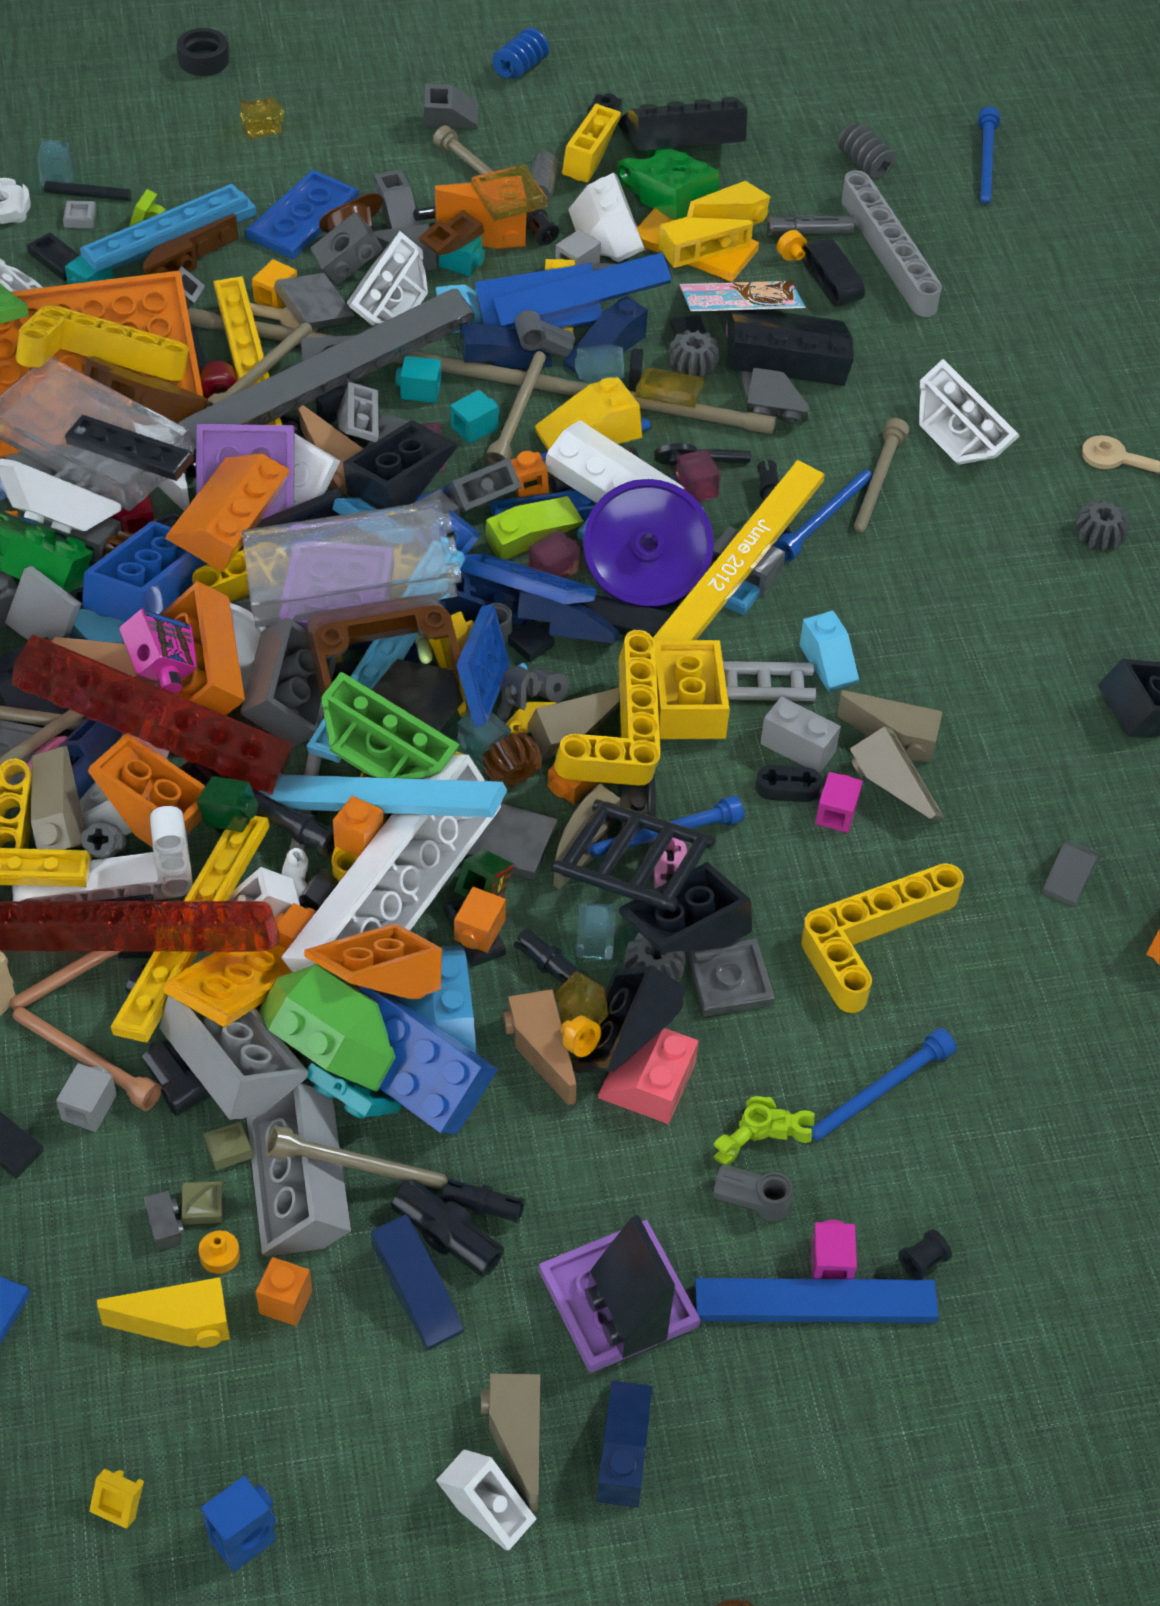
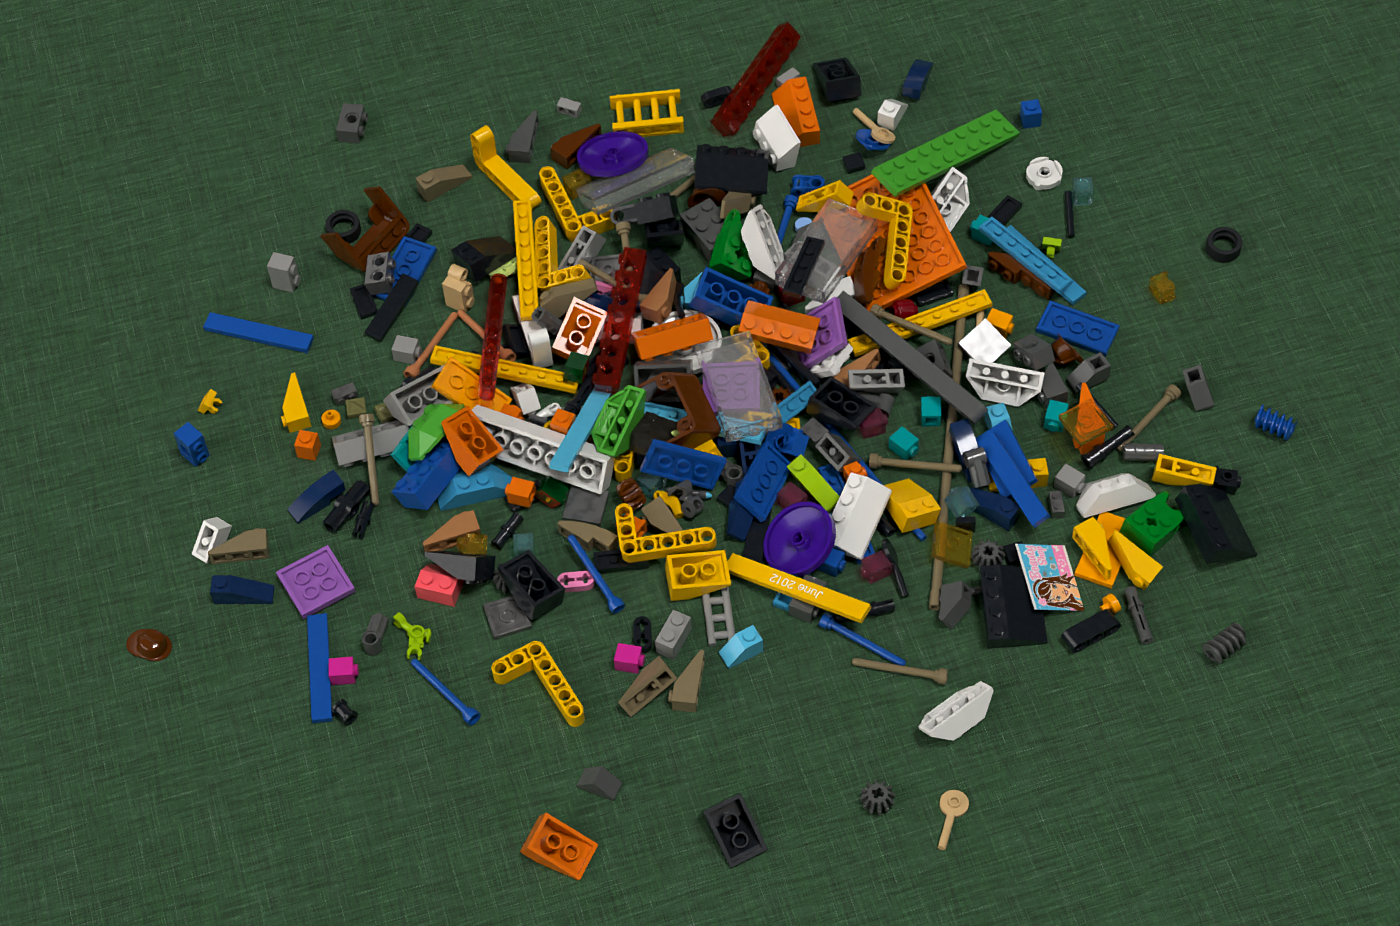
camera: 90 degrees right, 5 degrees up
(42, 607) = (698, 263): light grey tile -> none
(79, 214) = (1046, 215): light grey tile -> none
(160, 648) = (658, 312): dark pink torso -> none
(452, 236) = (1052, 401): reddish brown slope -> none
(580, 1035) = (447, 541): light orange tile -> none
(632, 1291) = (301, 576): black slope -> none
(634, 888) = (545, 537): black bar -> none
(891, 243) = (1126, 671): light grey beam -> none
(988, 121) = (1291, 724): blue piece -> none

